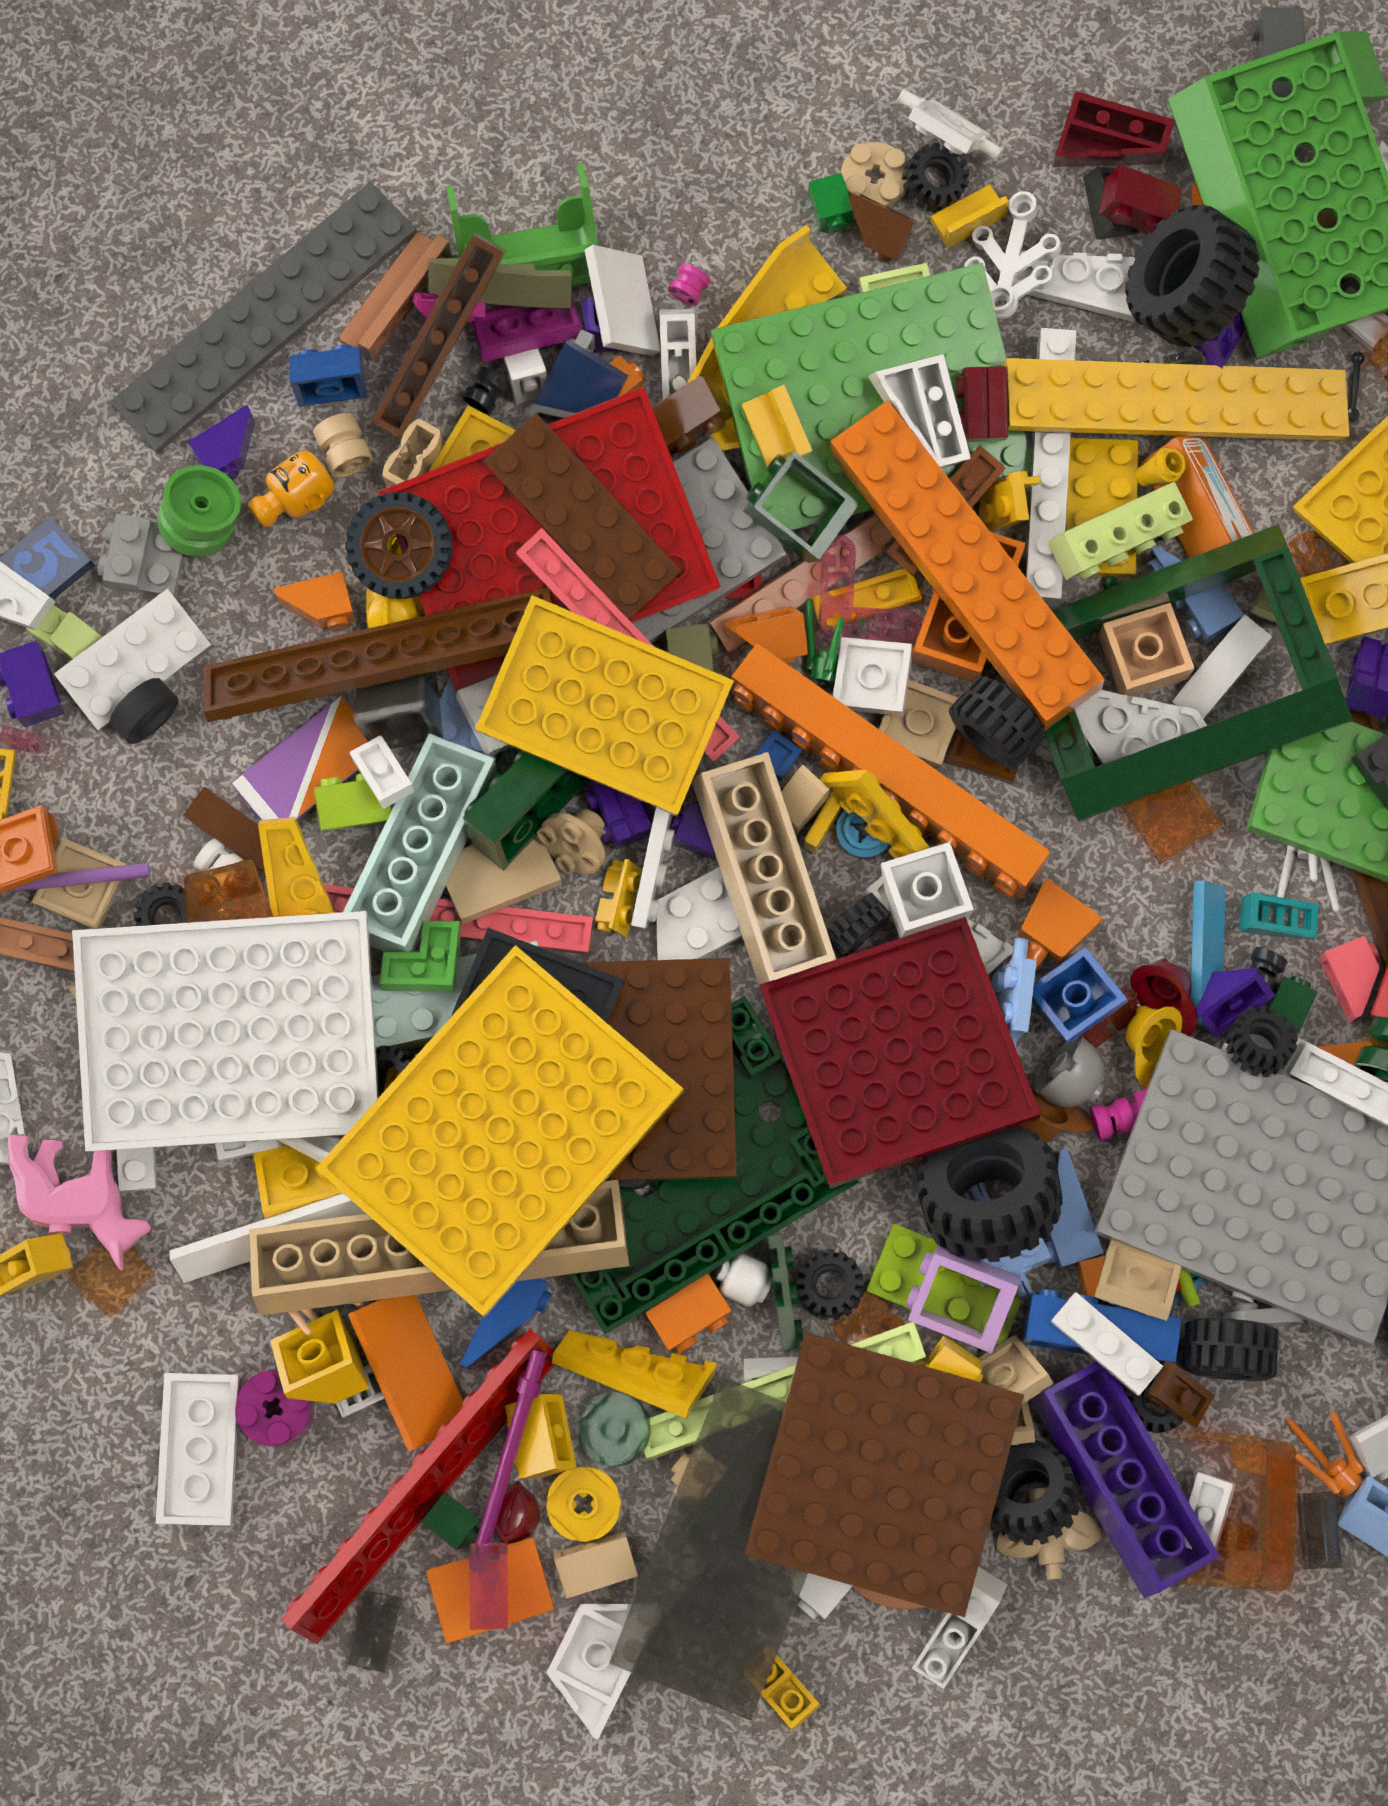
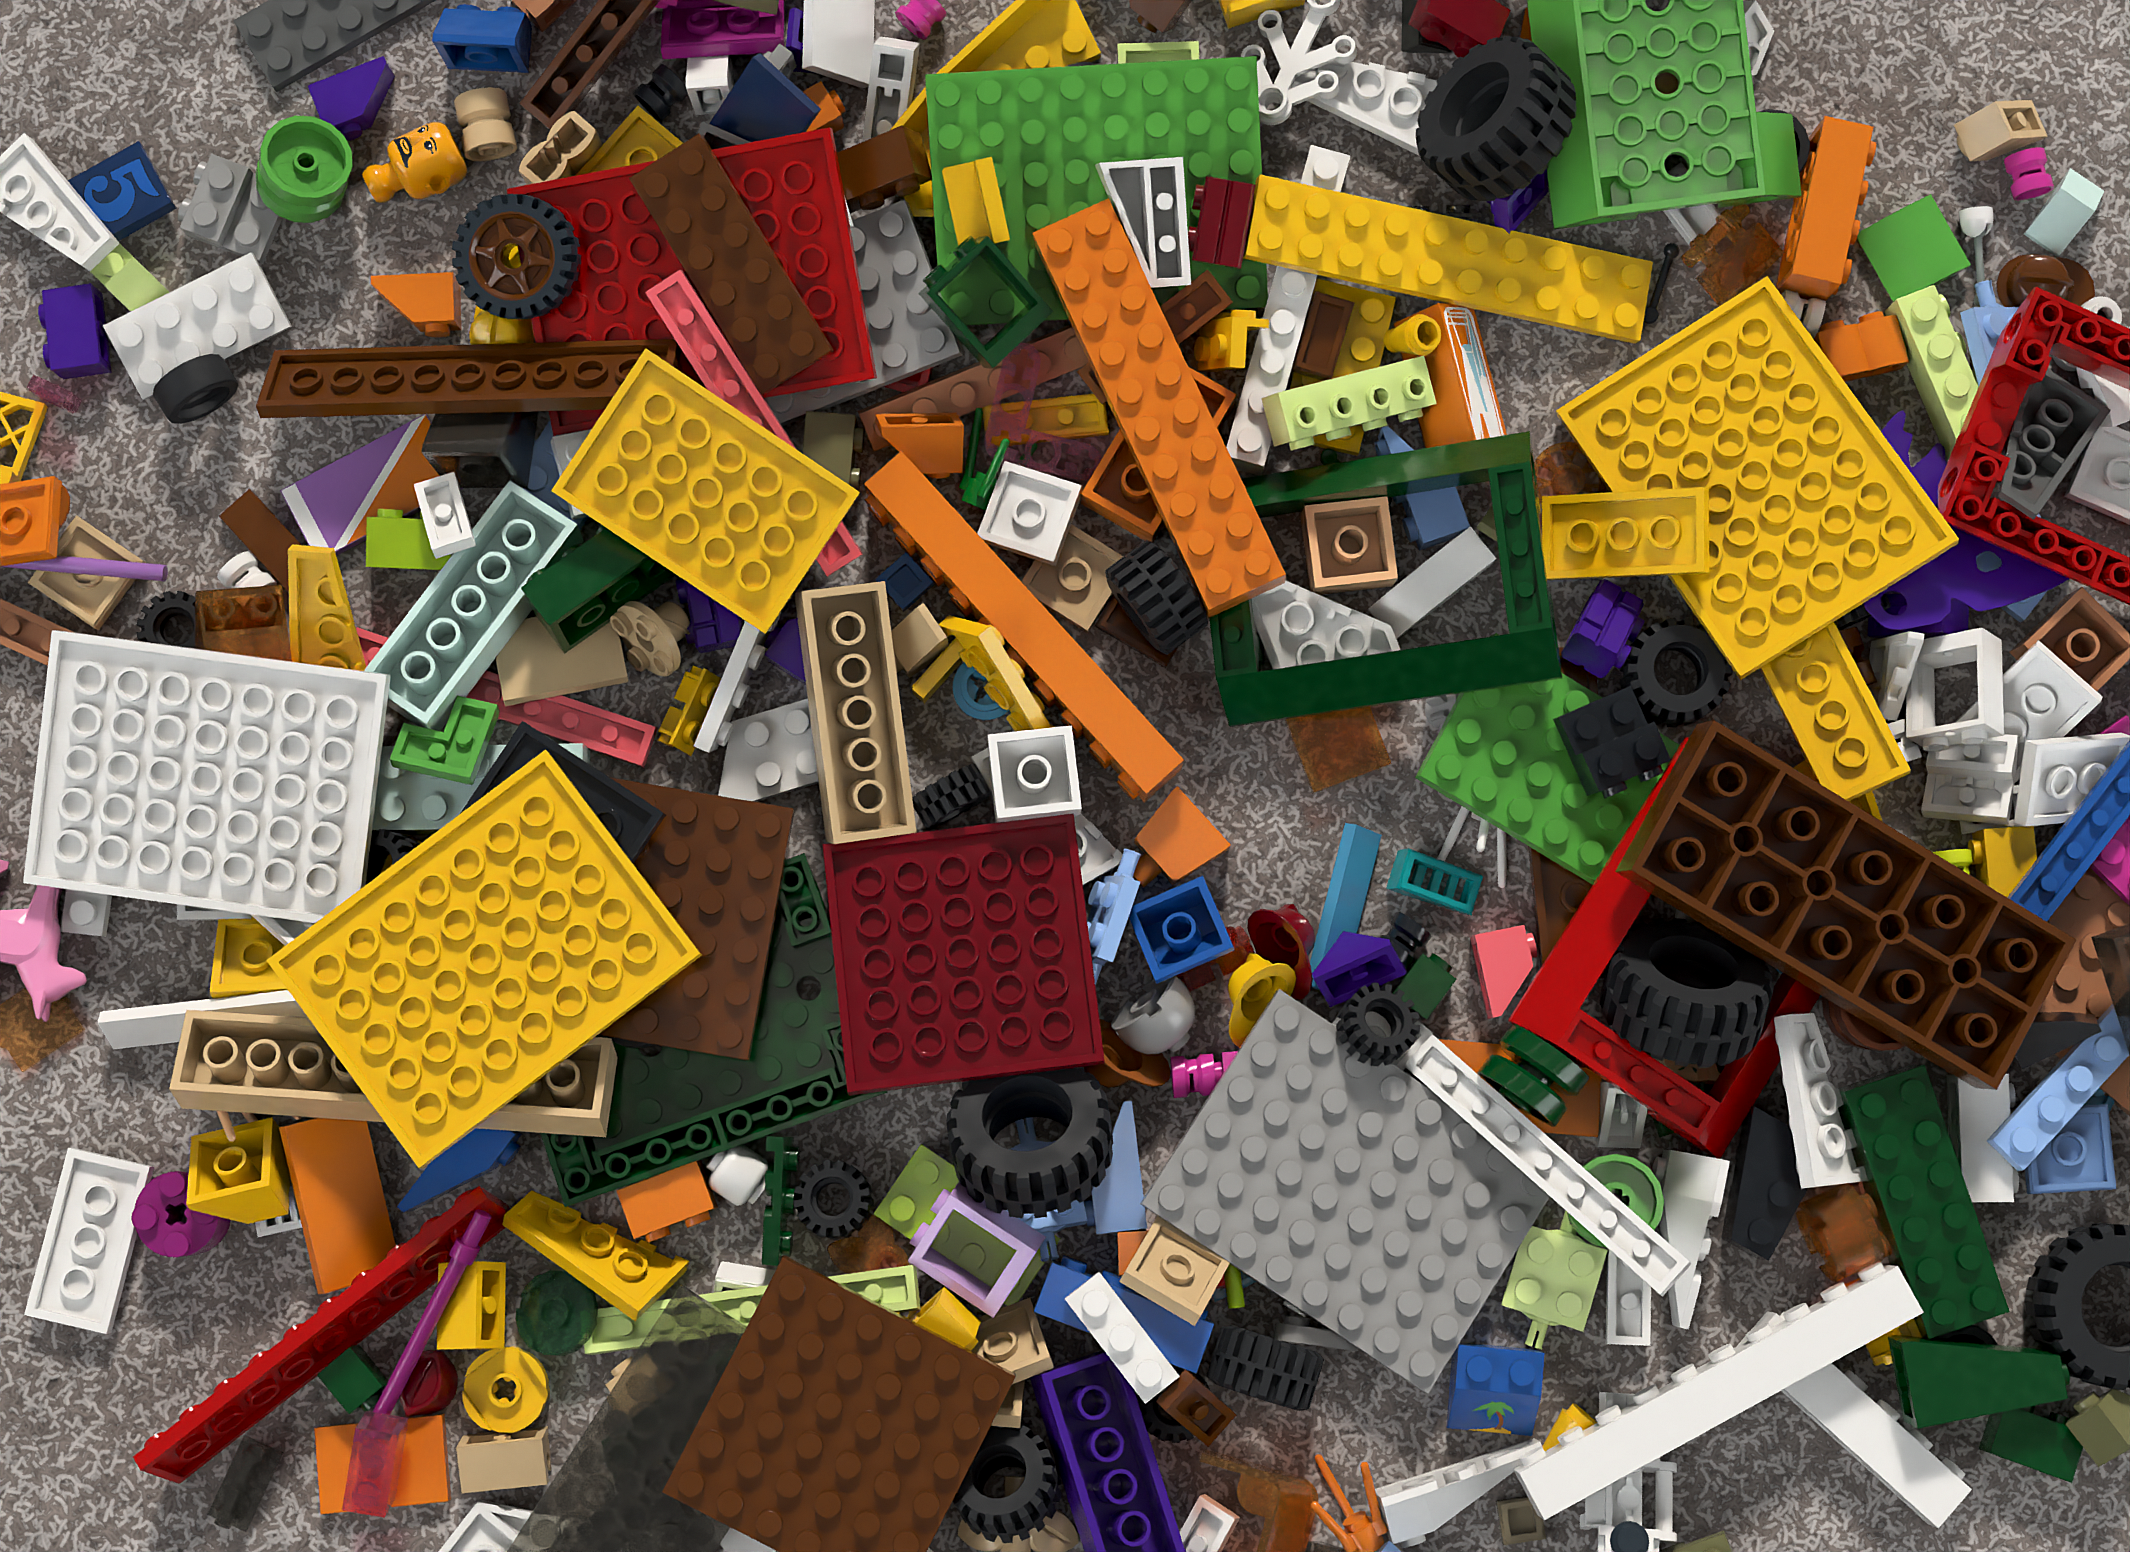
camera: 10 degrees right, 5 degrees up
(1085, 483) = (1322, 336): none -> reddish brown tile

